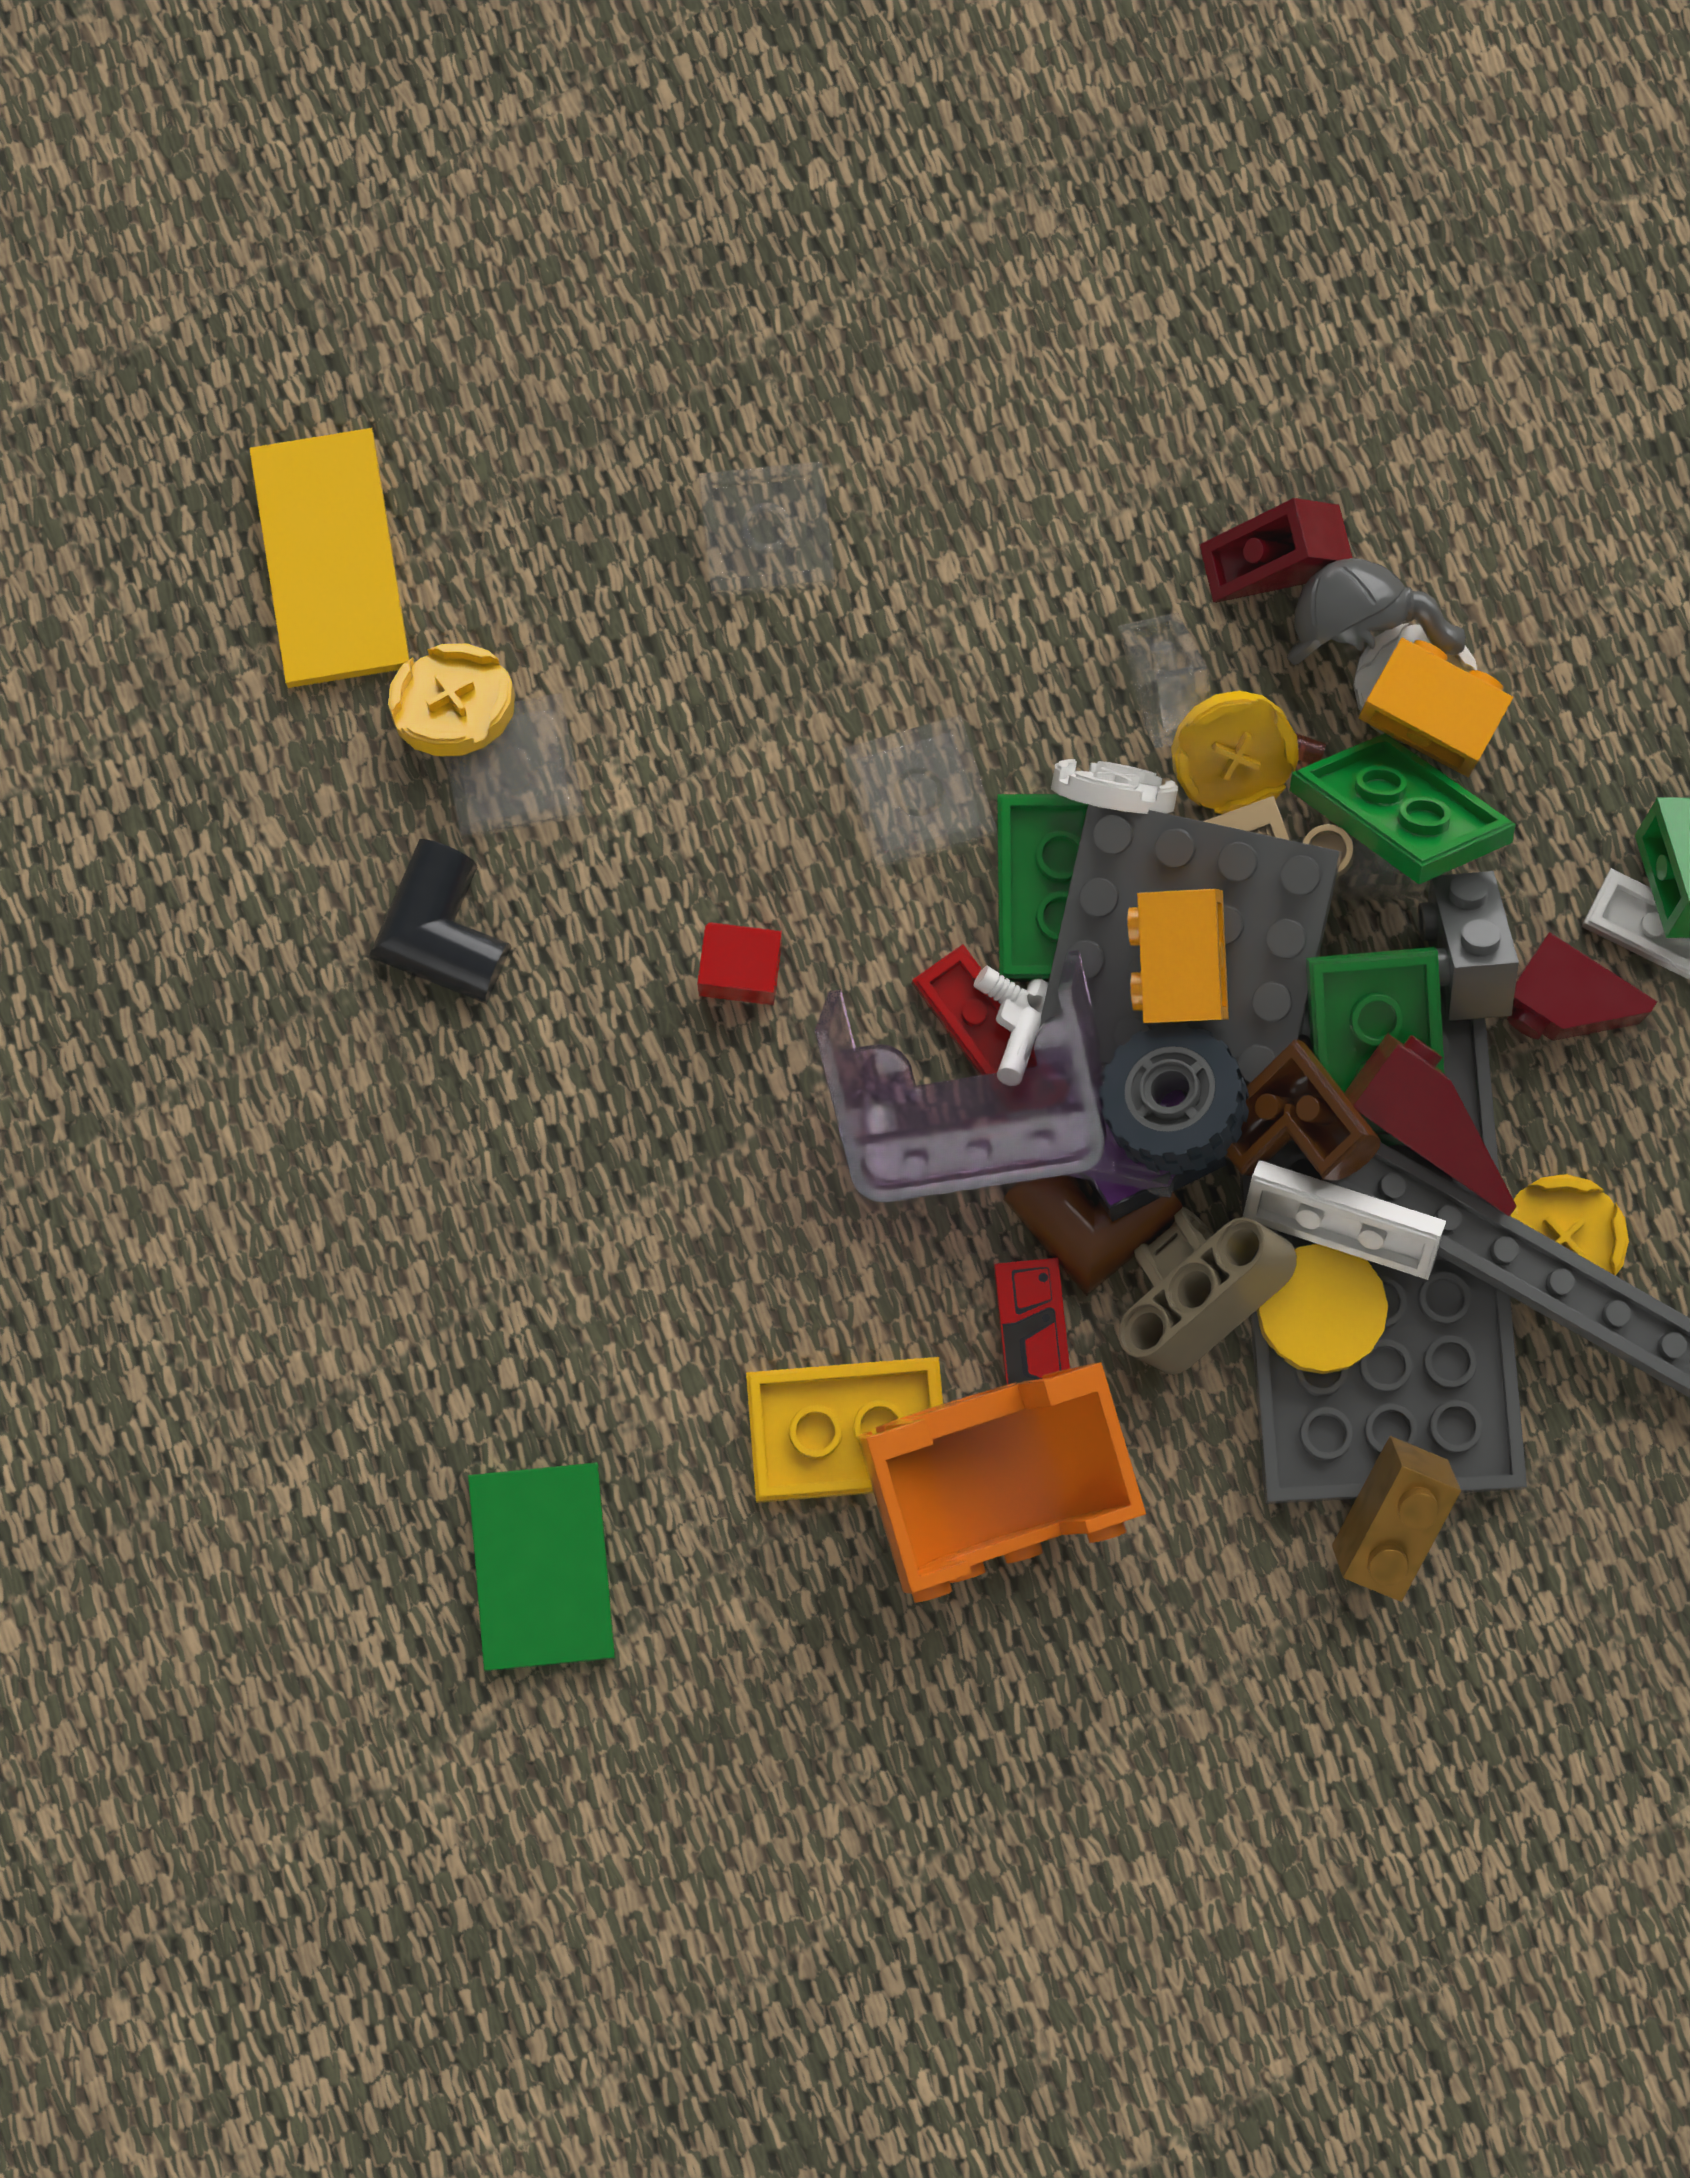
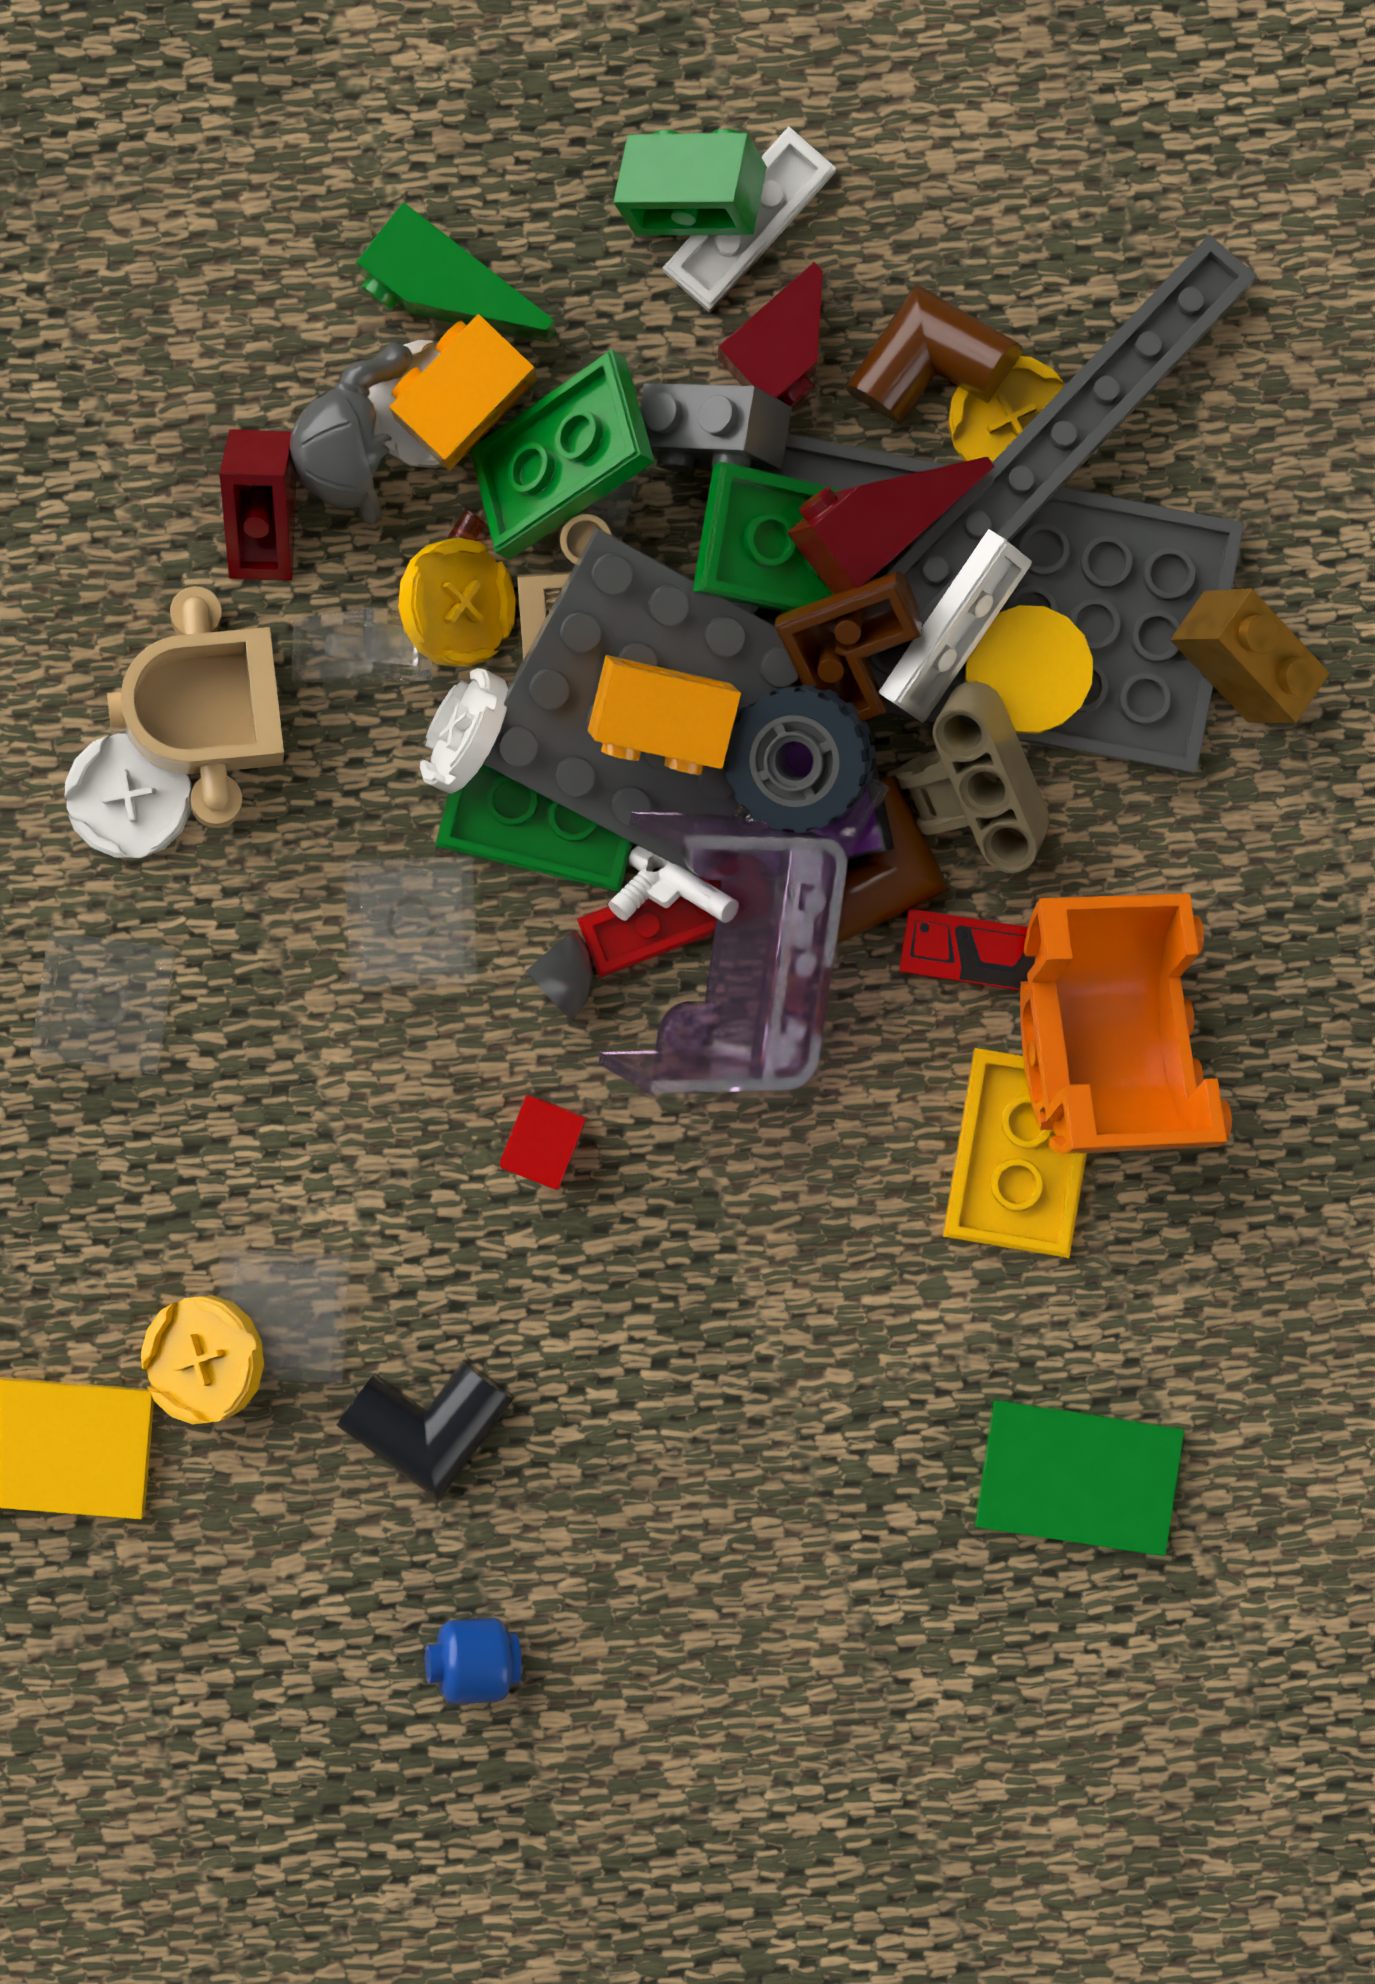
camera: 65 degrees left, 10 degrees up
(223, 1023) = (474, 1661): none -> blue head
(906, 941) = (565, 974): none -> dark grey brick
(968, 503) = (124, 800): none -> white tile
(1073, 546) = (203, 704): none -> tan piece
(1536, 659) = (439, 280): none -> green slope
(1613, 1132) = (926, 340): none -> reddish brown brick

